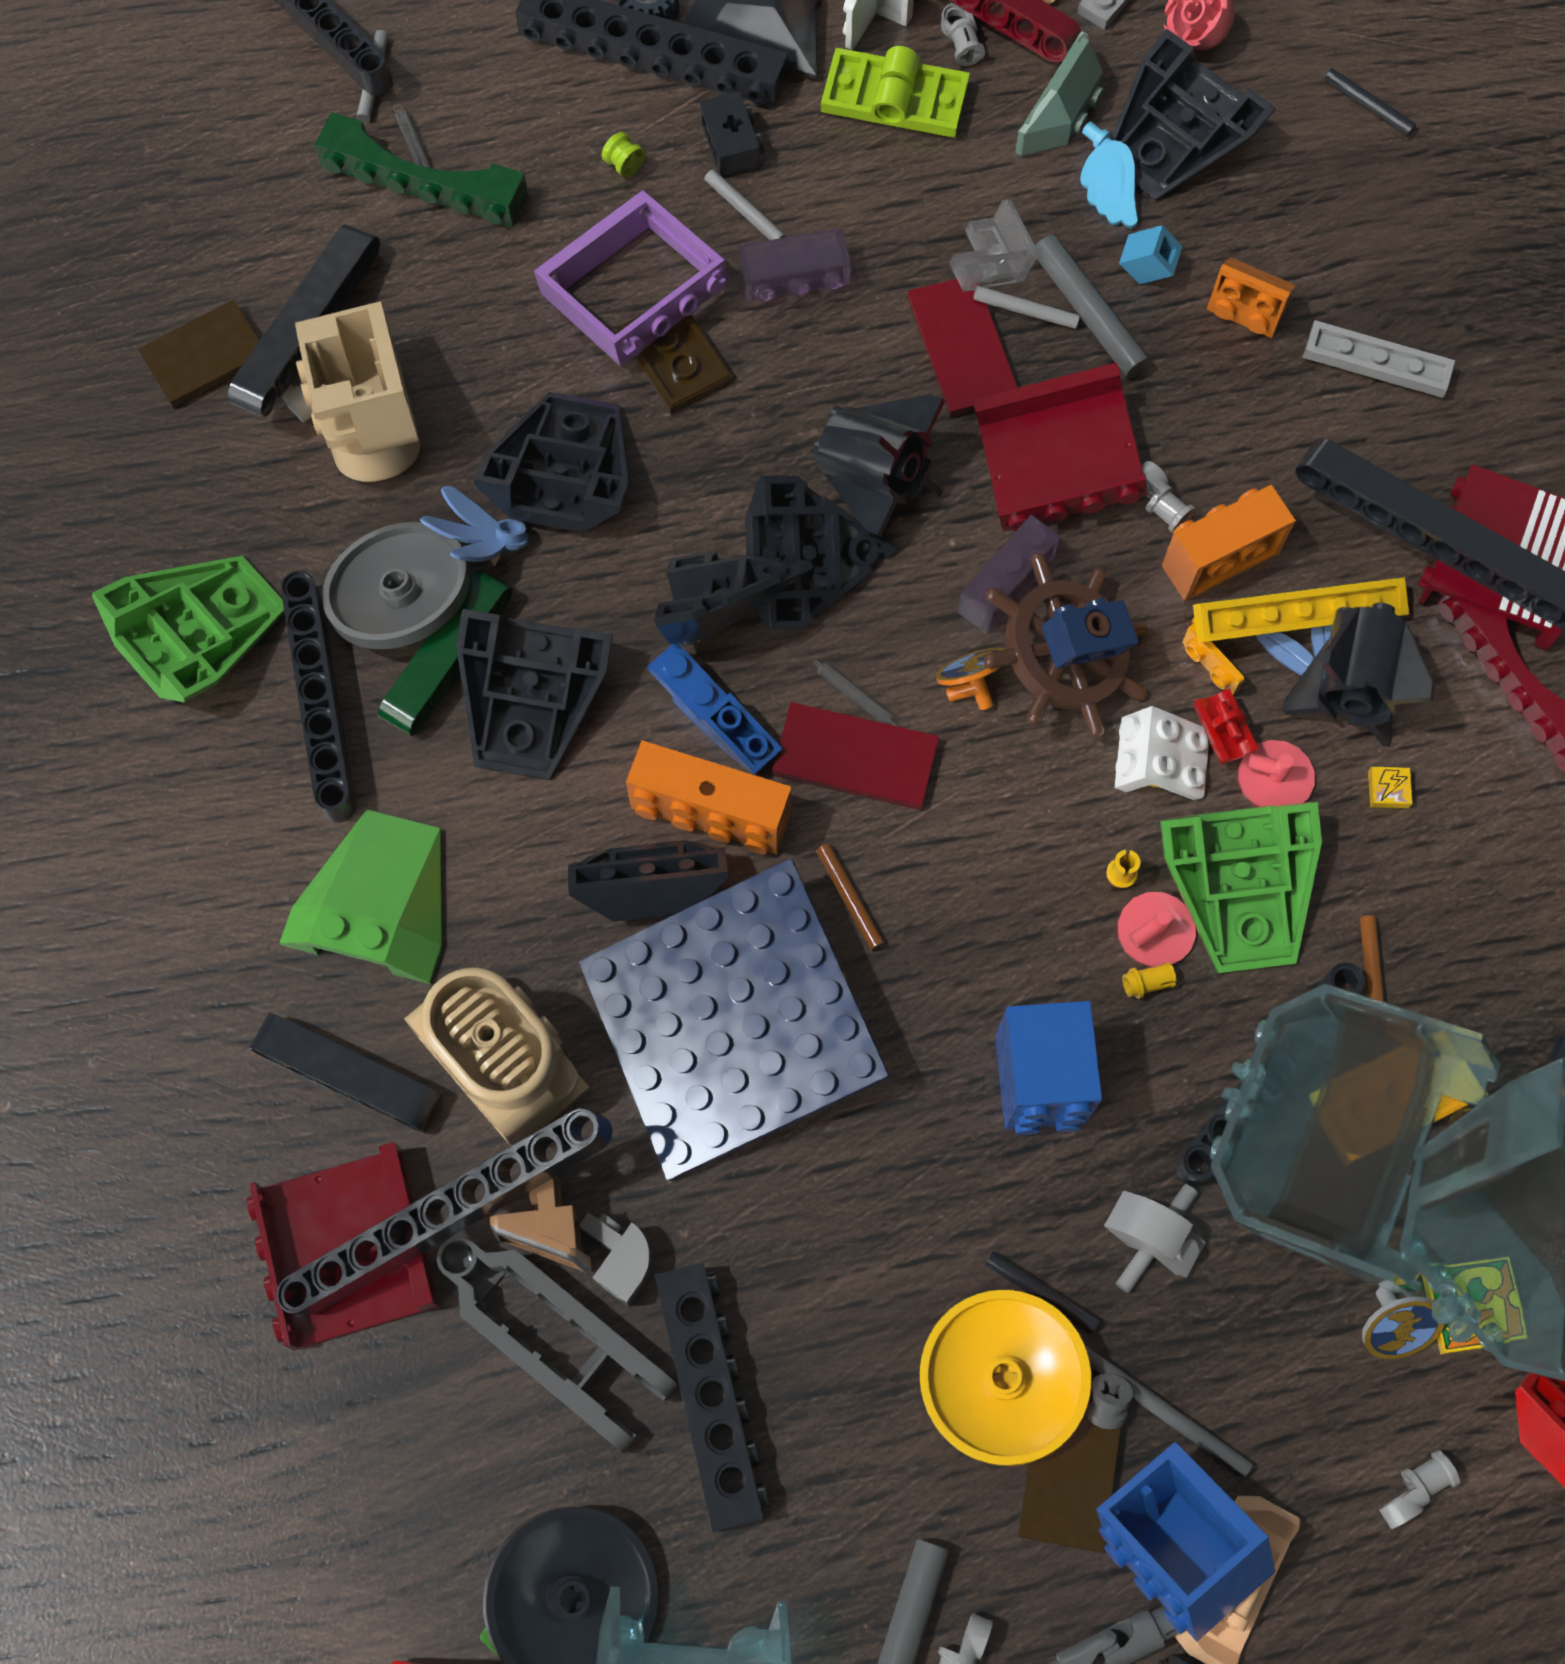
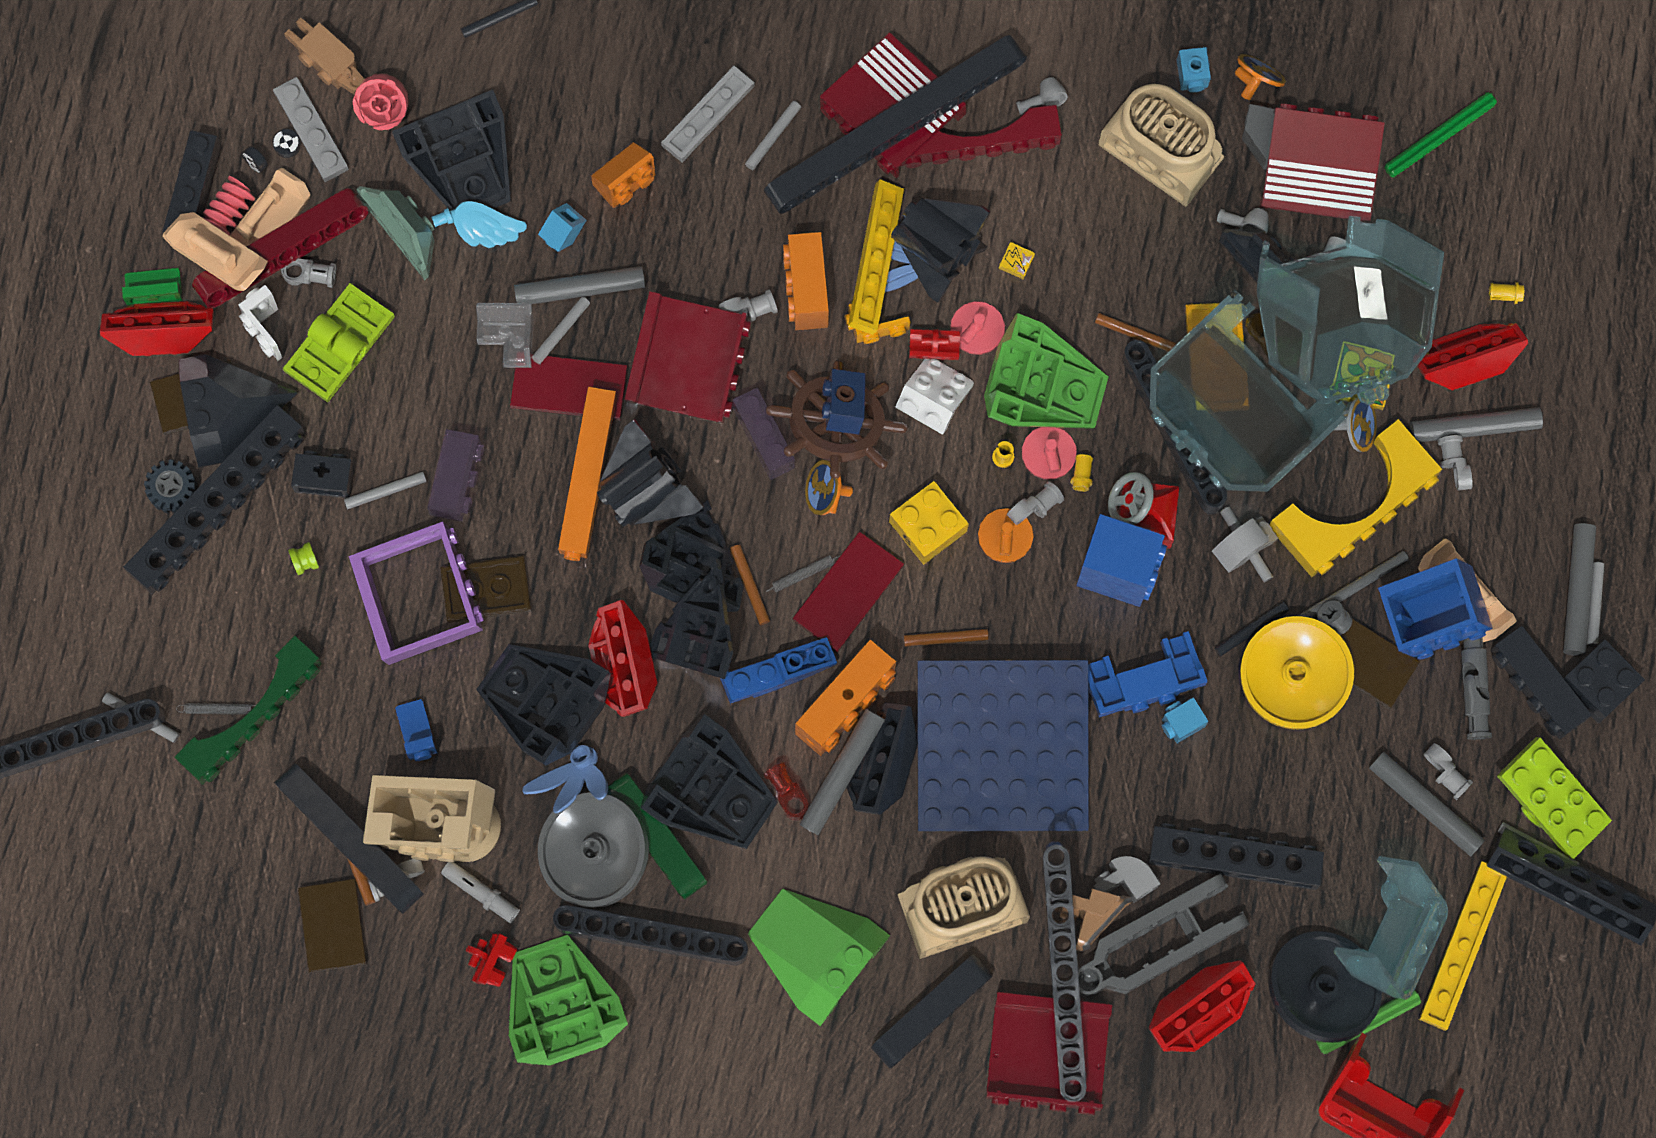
camera: 70 degrees left, 5 degrees up
(204, 532) = (496, 948): none -> red hips
(297, 502) = (490, 899): none -> light grey pin
(467, 348) = (416, 730): none -> blue bracket
(475, 1429) = (1202, 1007): none -> red wedge
(565, 781) = (786, 792): none -> clear red connector
(613, 832) = (842, 772): none -> dark grey piece
(651, 528) = (623, 649): none -> red wedge
(805, 411) = (587, 473): none -> orange brick
(812, 638) = (749, 584): none -> dark orange bar
(871, 1246) = (1183, 720): none -> dark azure brick
(899, 1177) = (1148, 683): none -> blue bracket
(988, 812) = (928, 522): none -> yellow brick
(1020, 918) = (1002, 538): none -> orange shield
(1080, 940) = (1039, 504): none -> light grey connector
(1137, 1075) = (1145, 504): none -> piece
(1368, 1426) = (1319, 543): none -> yellow arch
(1393, 442) = (773, 135): none -> light grey bar
(1490, 1501) = (1477, 424): none -> dark grey piece

